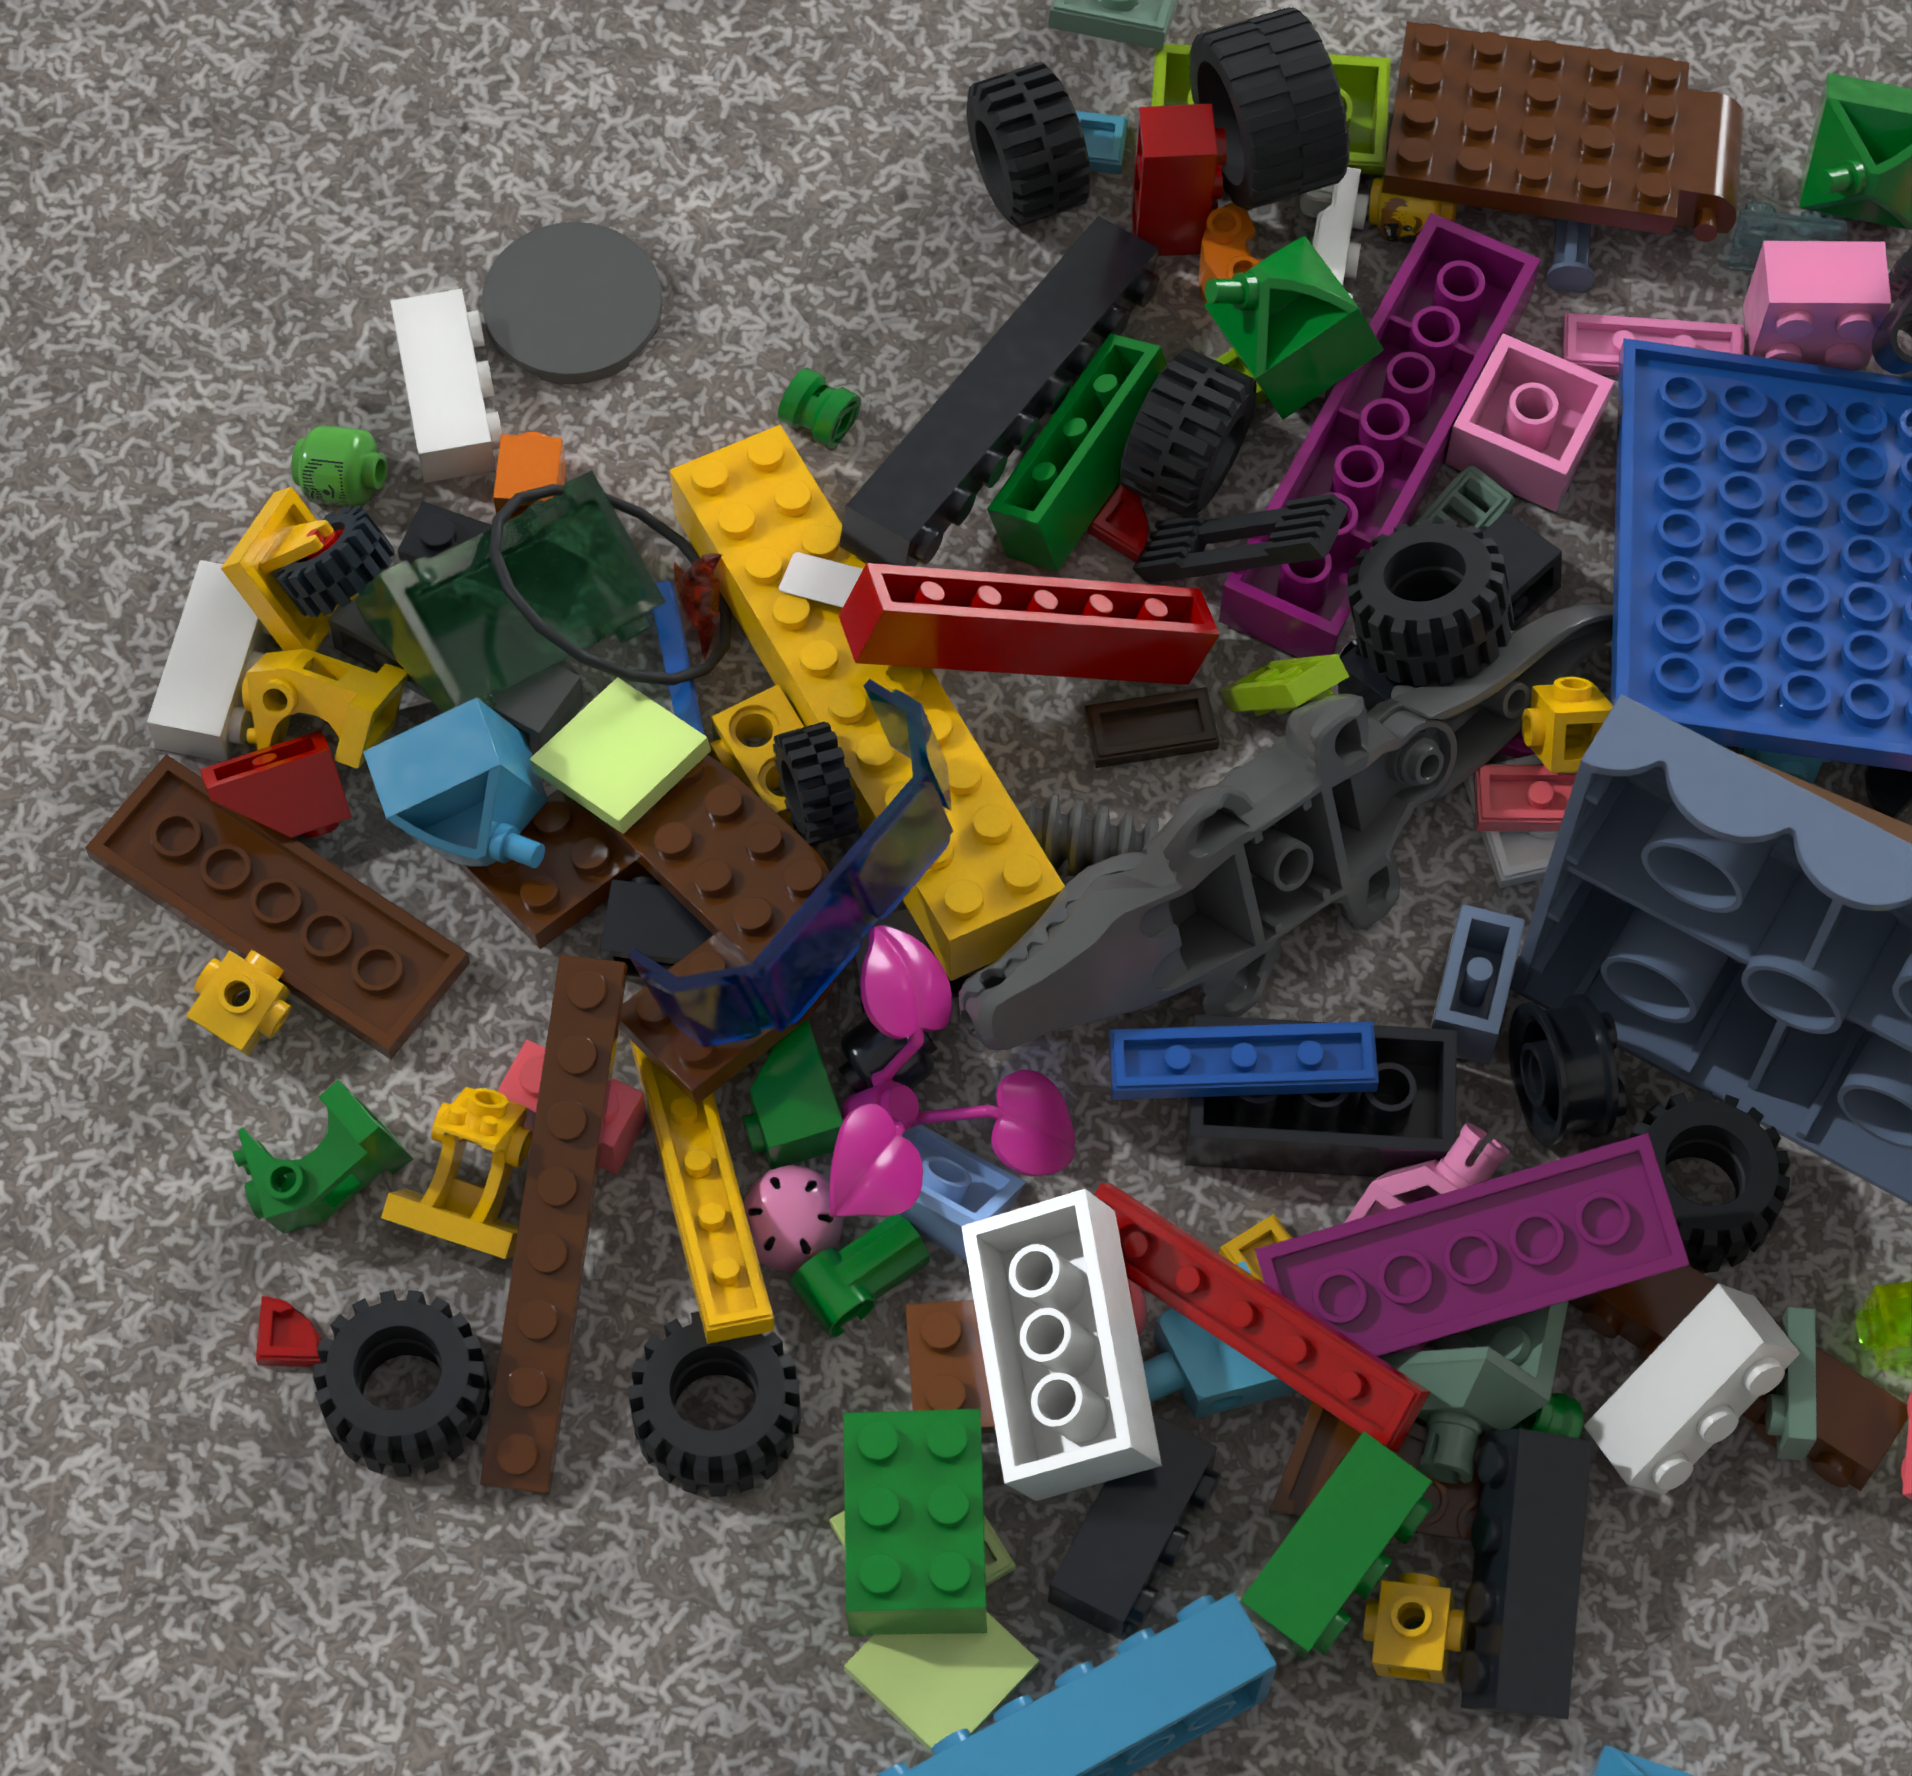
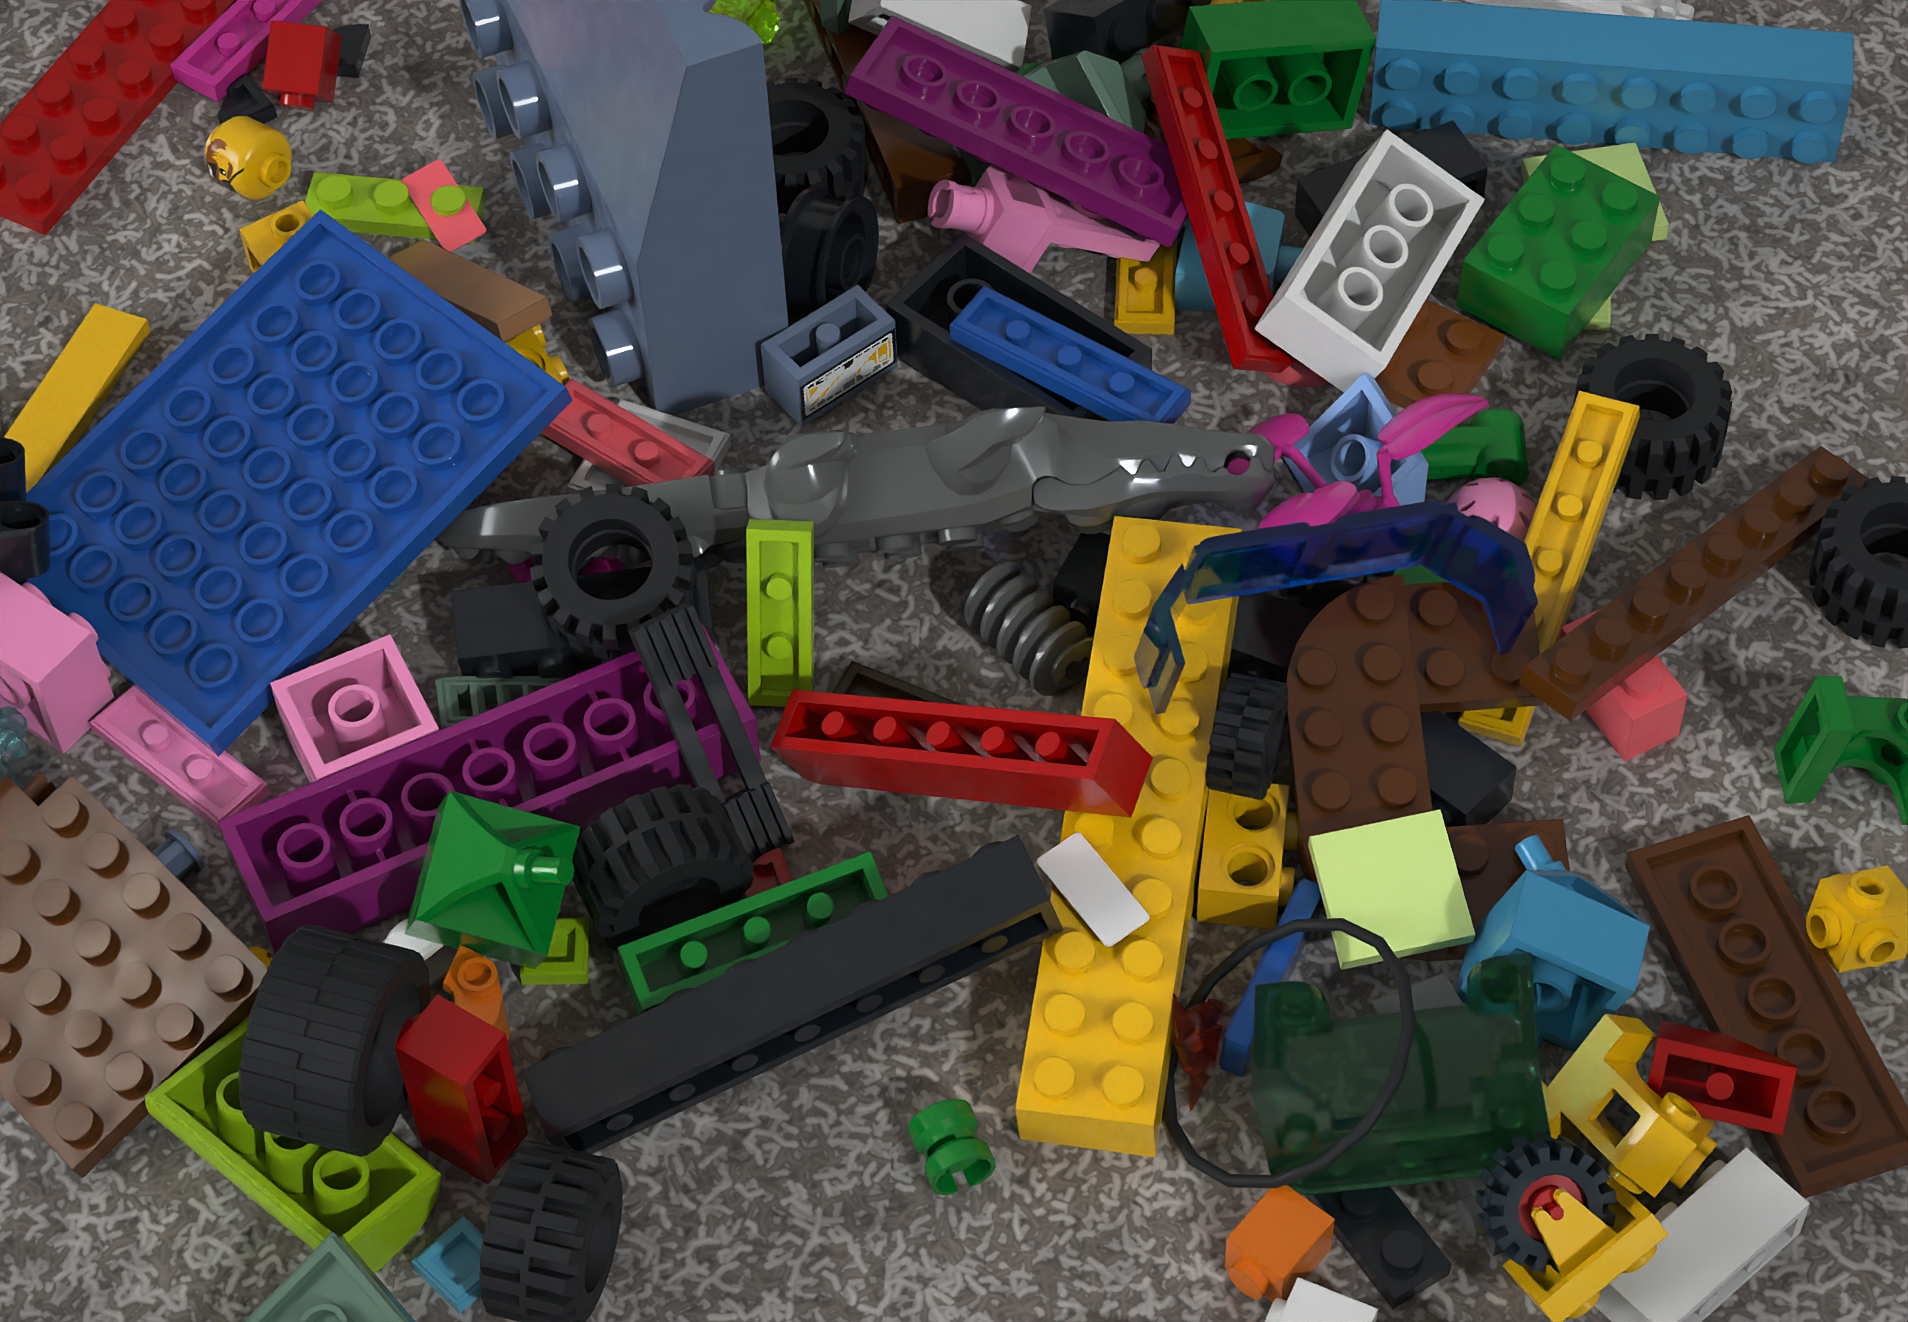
camera: 140 degrees left, 10 degrees down
(459, 1208) = (1728, 664): yellow tile -> none
(1564, 721) = (586, 448): yellow brick -> none

